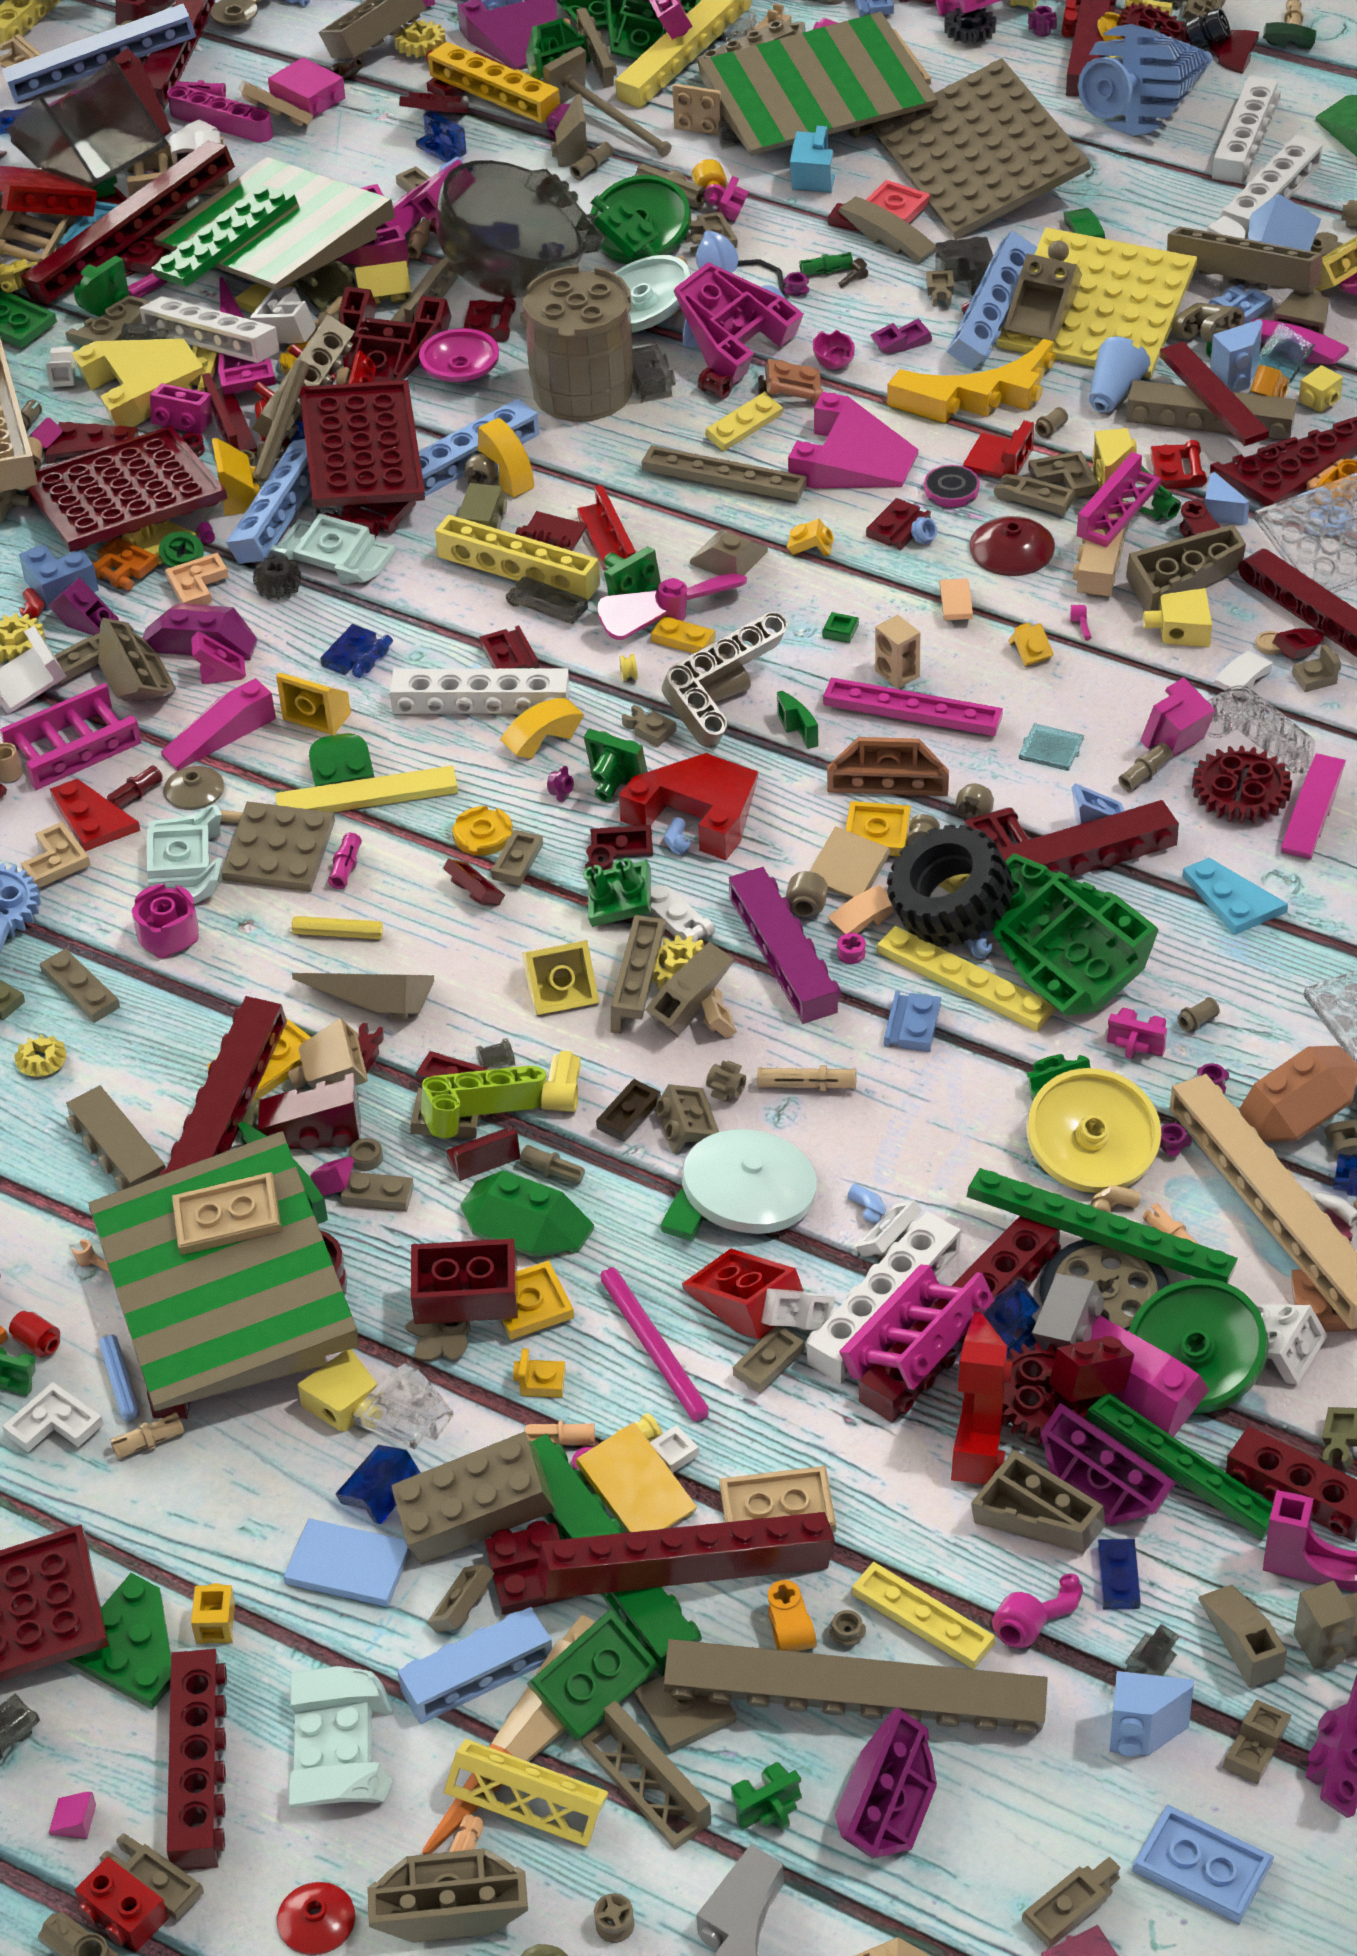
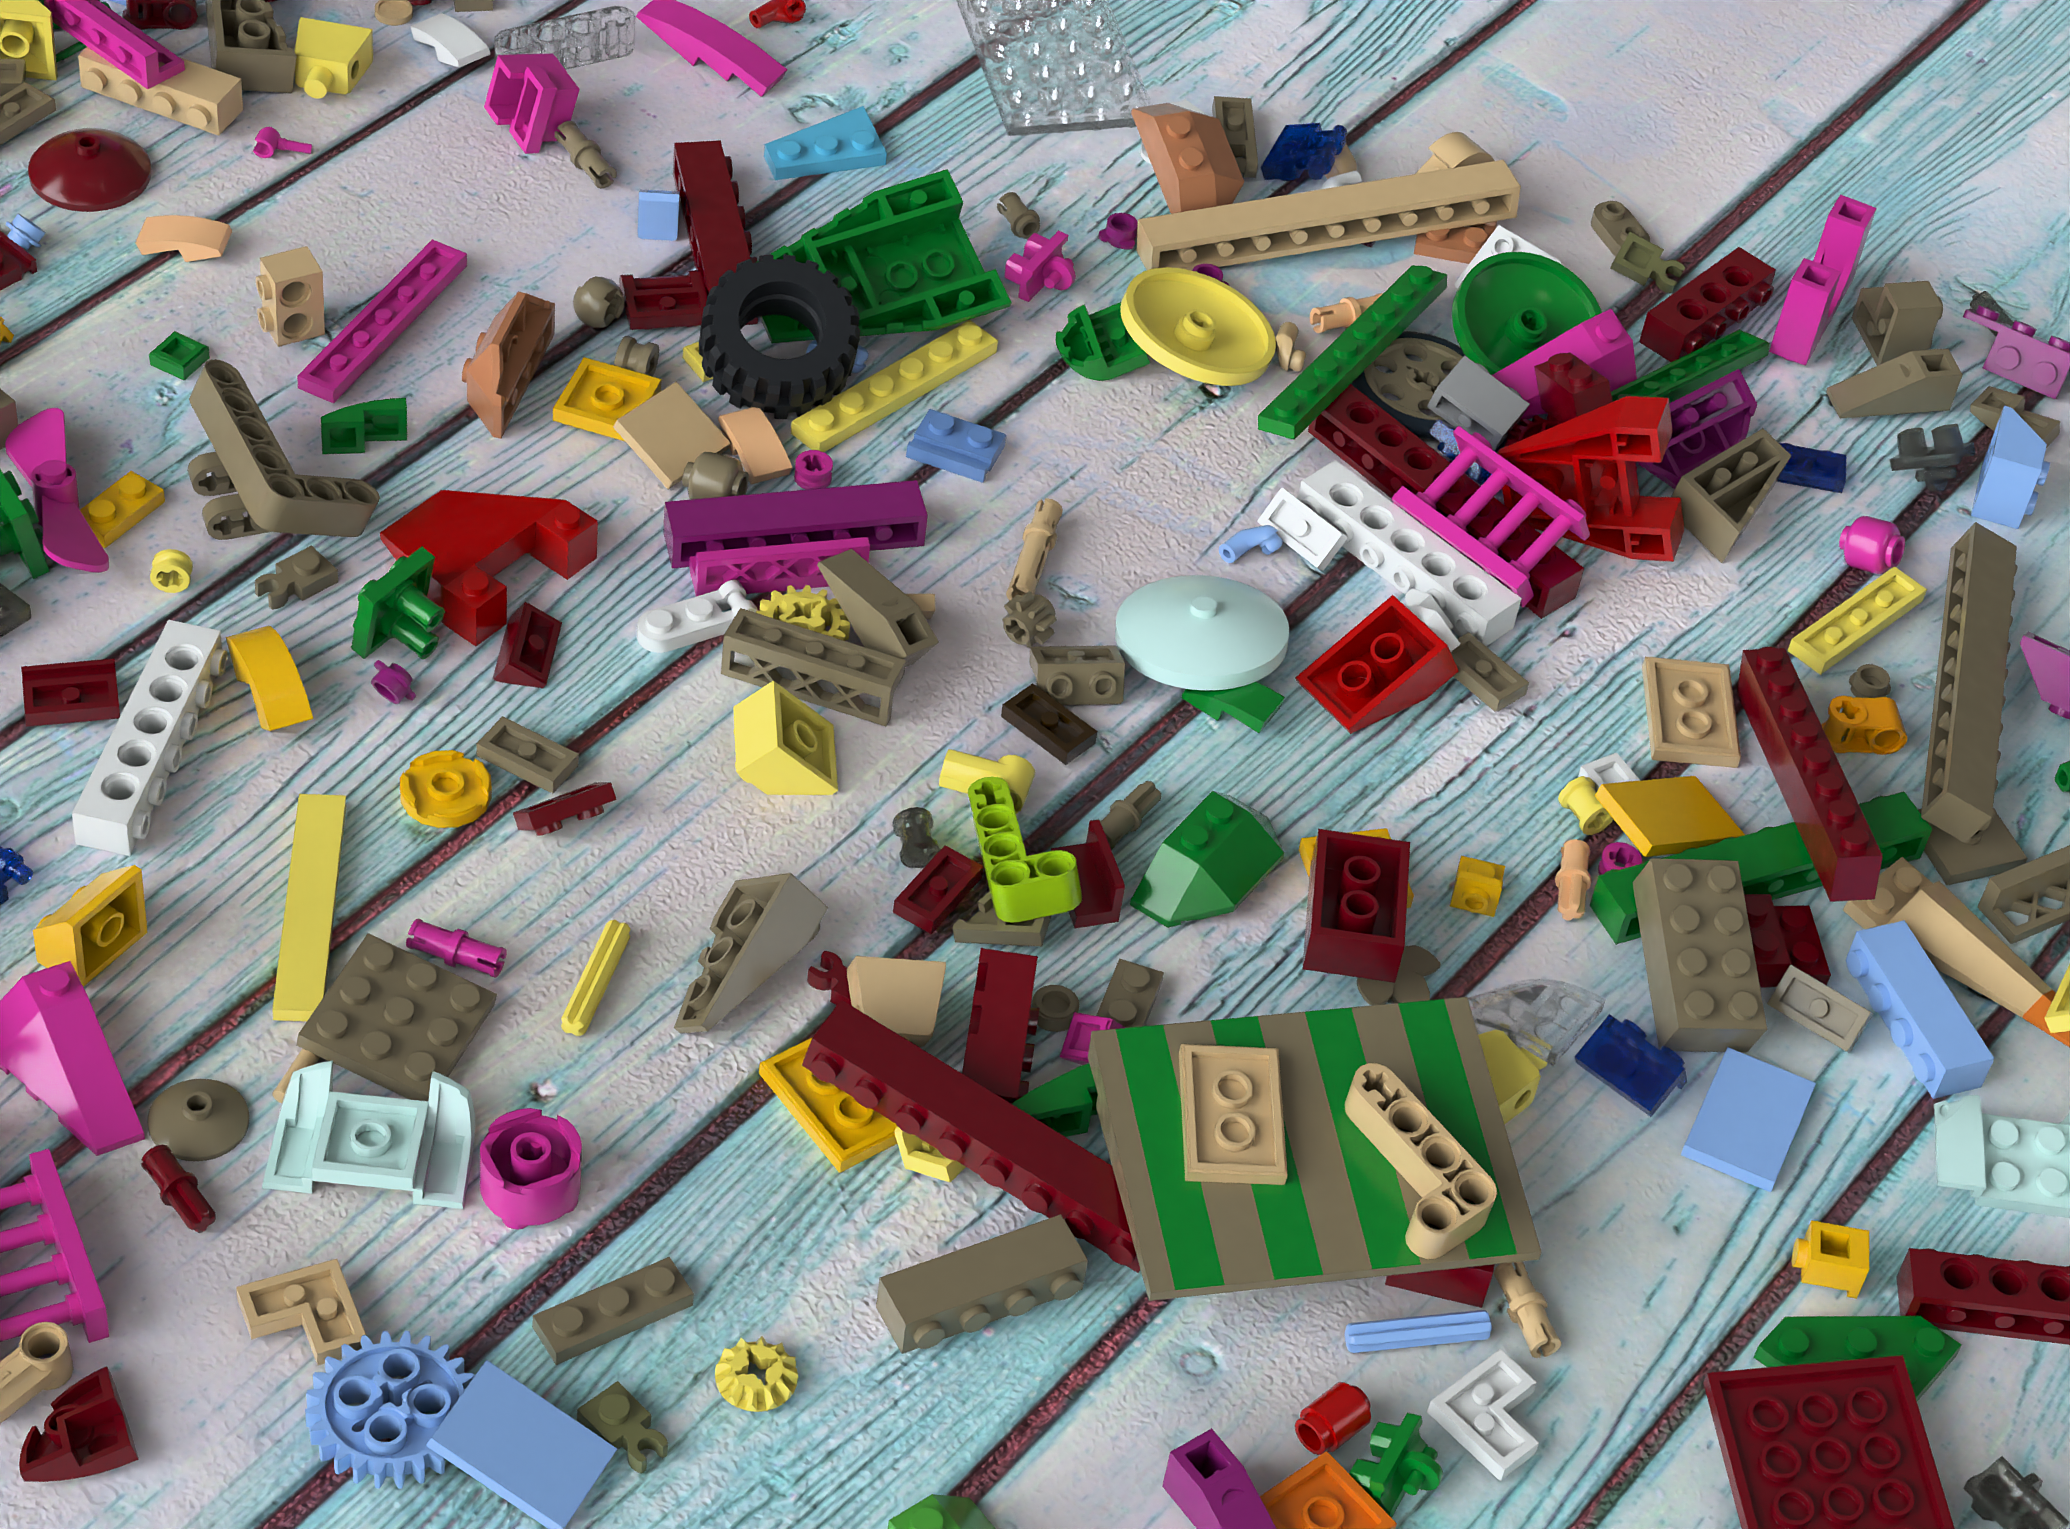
camera: 90 degrees left, 0 degrees up
(88, 1256) = (1188, 1342): light nougat hand -> none
(91, 816) = (210, 1259): red wing -> none
(202, 1318) = (1381, 1105): none -> tan beam
(340, 759) = (229, 921): green slope -> none
(592, 1674) = (1952, 893): green tile -> none
(597, 851) = (563, 669): dark red plate -> none
(618, 891) = (648, 655): green plate -> none
(654, 1344) = (1437, 772): dark pink axle -> none
(675, 838) = (544, 594): light blue arm -> none
(740, 943) = (769, 567): none -> dark pink fence
(1031, 643) = (309, 188): yellow bracket -> none
(1051, 747) = (504, 226): clear light blue piece -> none
(1067, 1598) = (1833, 508): dark pink arm -> none
(1262, 791) = (652, 88): dark red gear -> none

